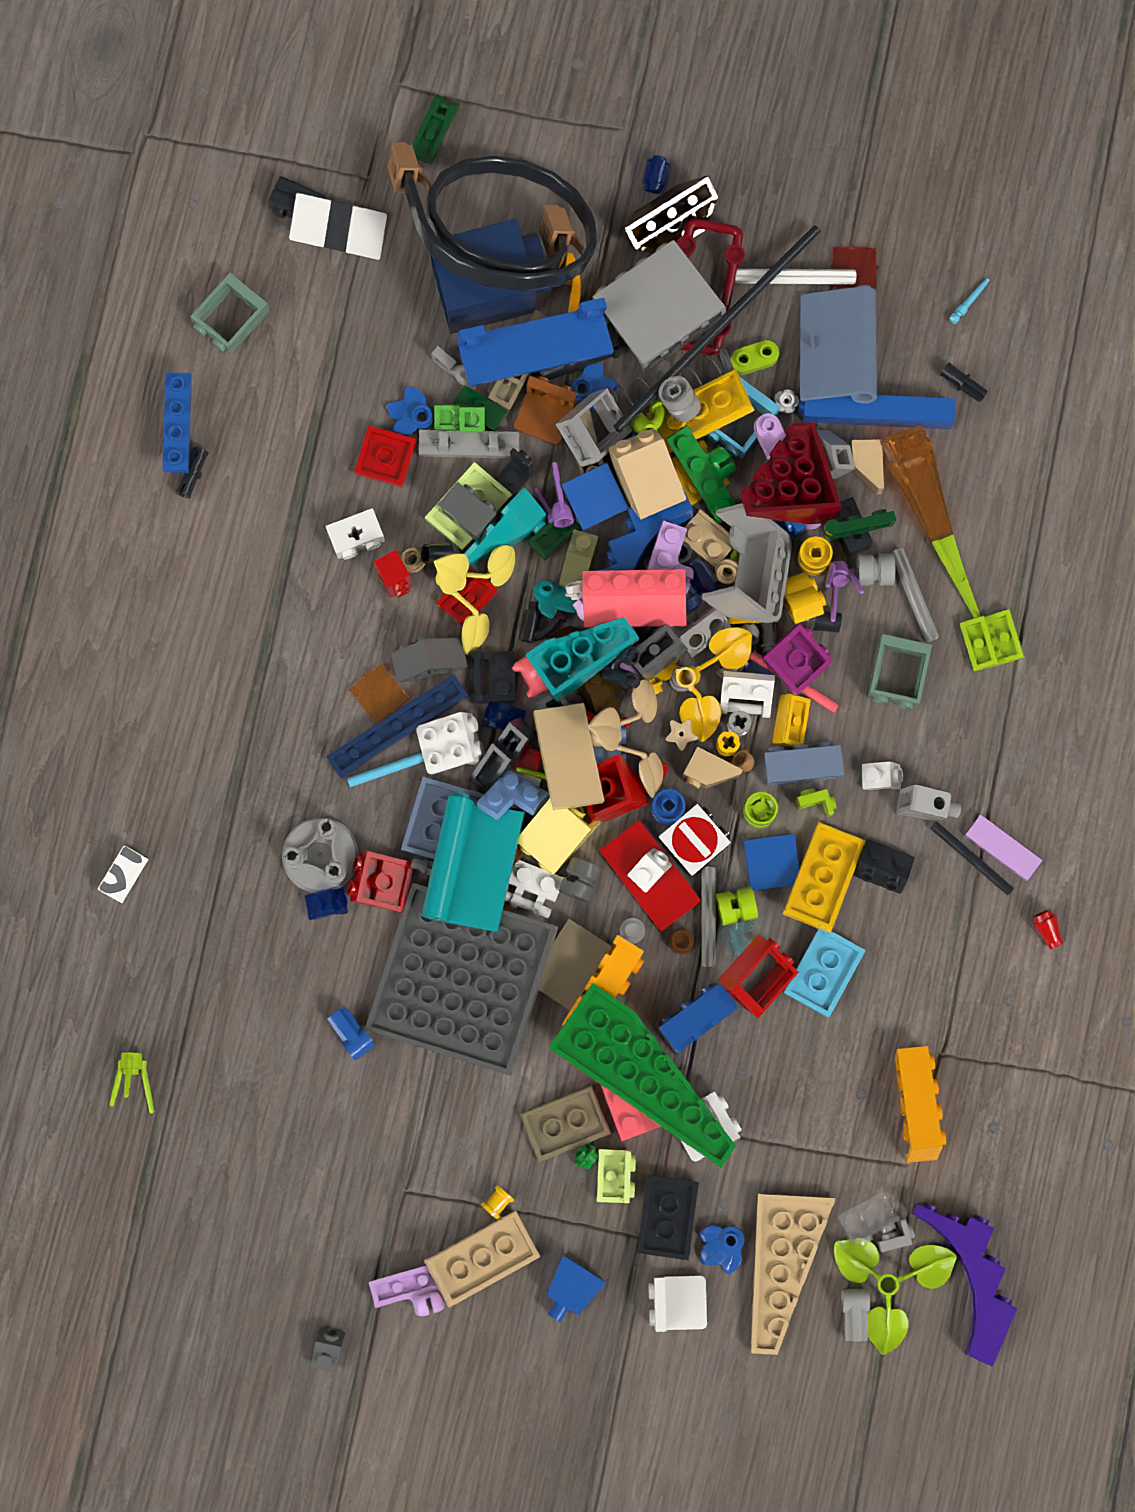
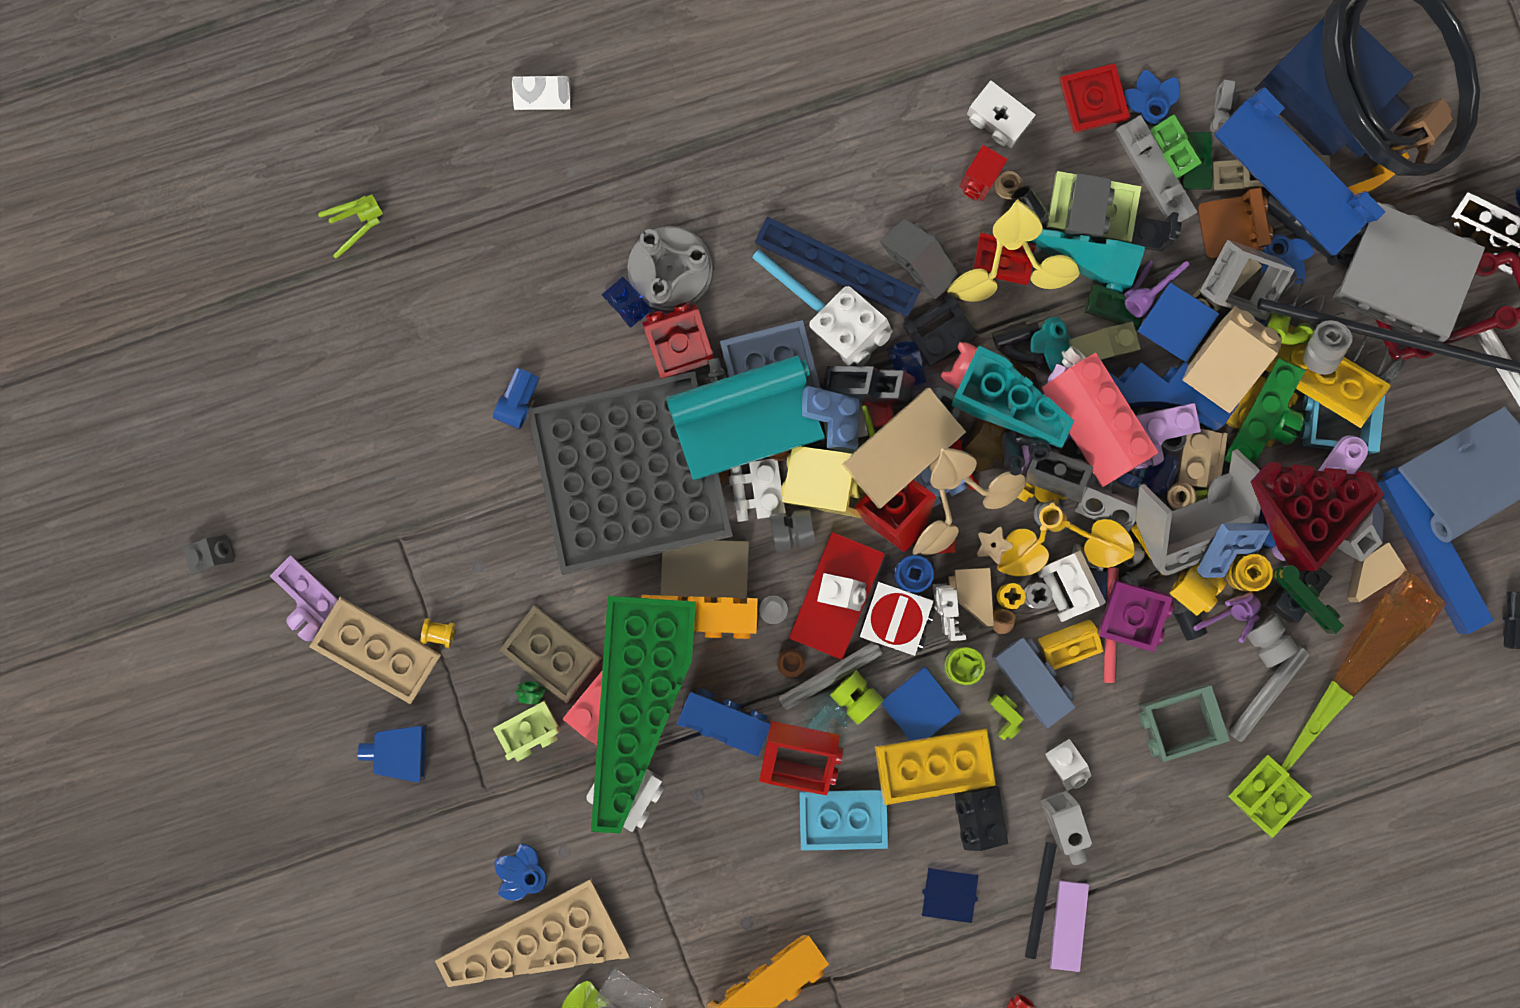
camera: 60 degrees right, 5 degrees up
(379, 694) = (859, 231): clear orange piece -> none
(667, 1217) = (518, 805): black plate -> none
(678, 1303) = (442, 862): white bracket -> none
(706, 794) = (947, 606): none -> white piece
(755, 357) = (1412, 400): lime plate -> none
(782, 557) = (1227, 543): none -> medium blue plate
(786, 407) = (1395, 454): white plate -> none
(928, 925) = (950, 895): none -> clear blue piece

